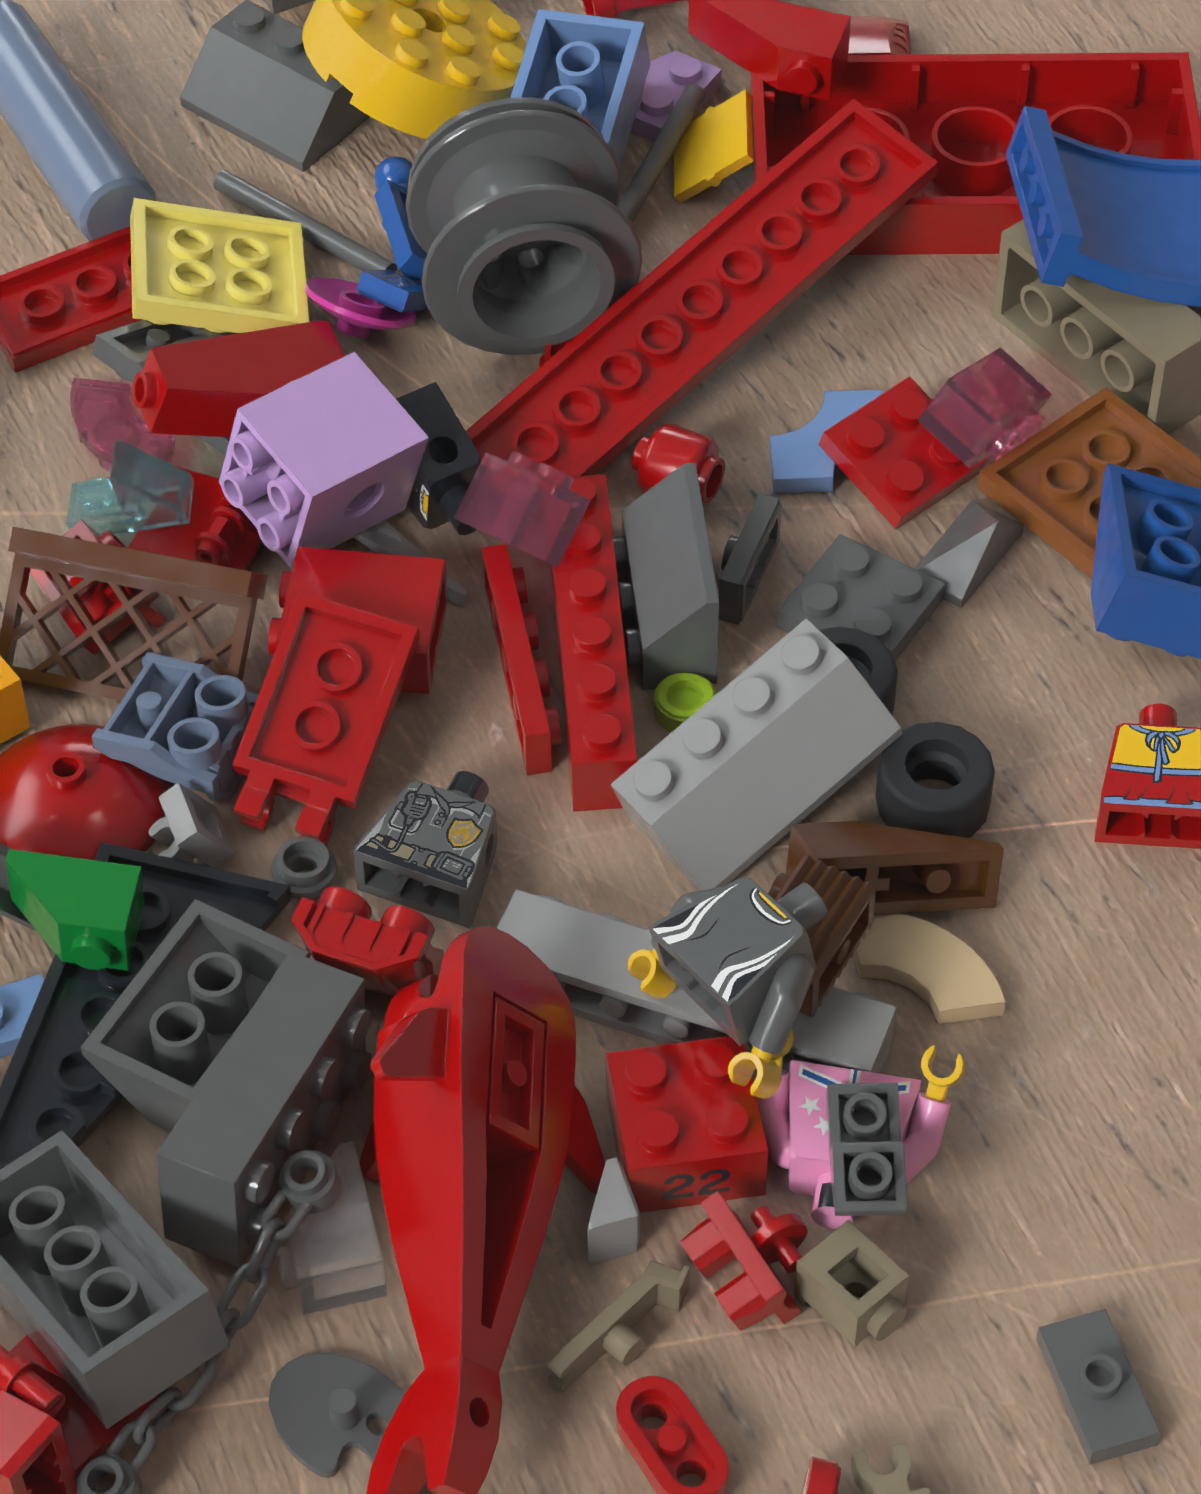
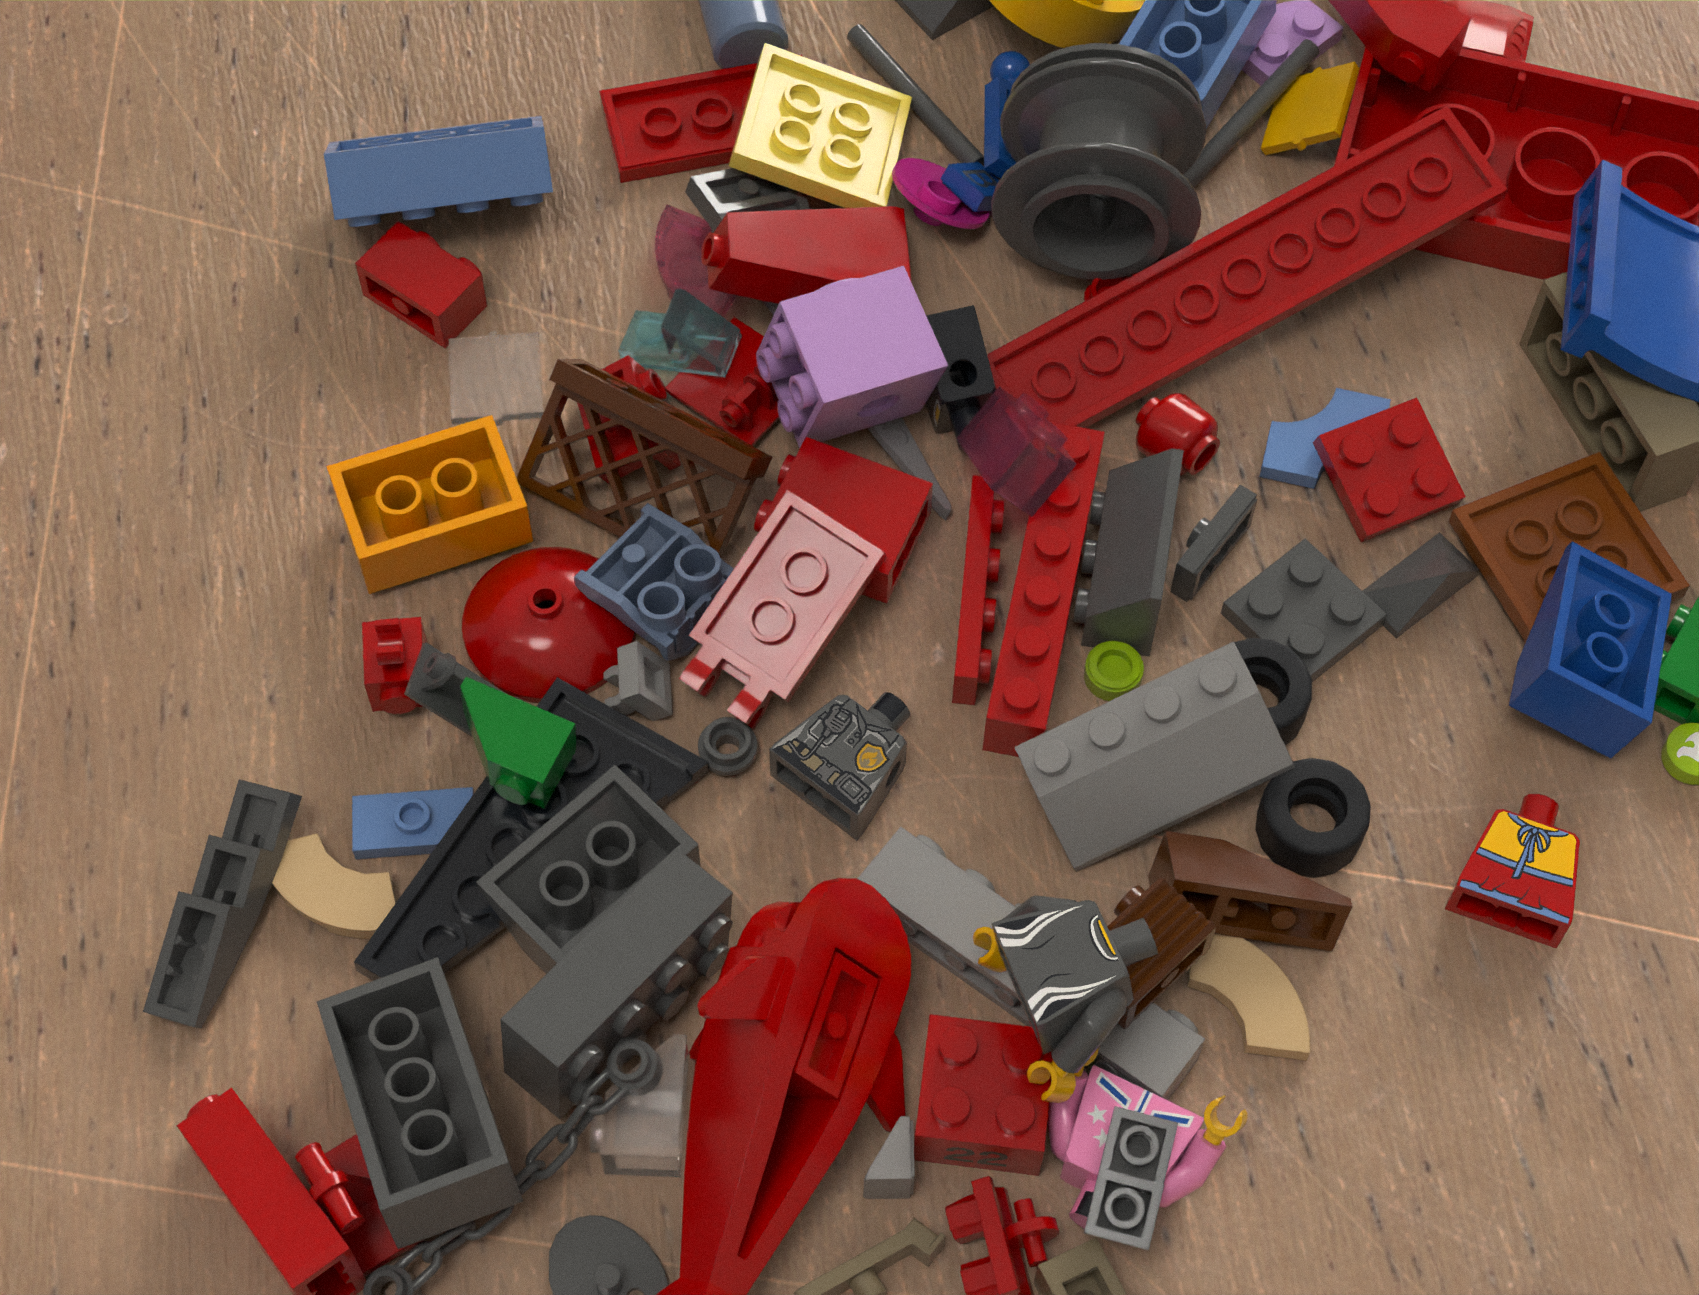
camera: 15 degrees right, 10 degrees up
(382, 952) = (761, 863): red slope -> none
(986, 408) = (1478, 451): clear pink brick -> none

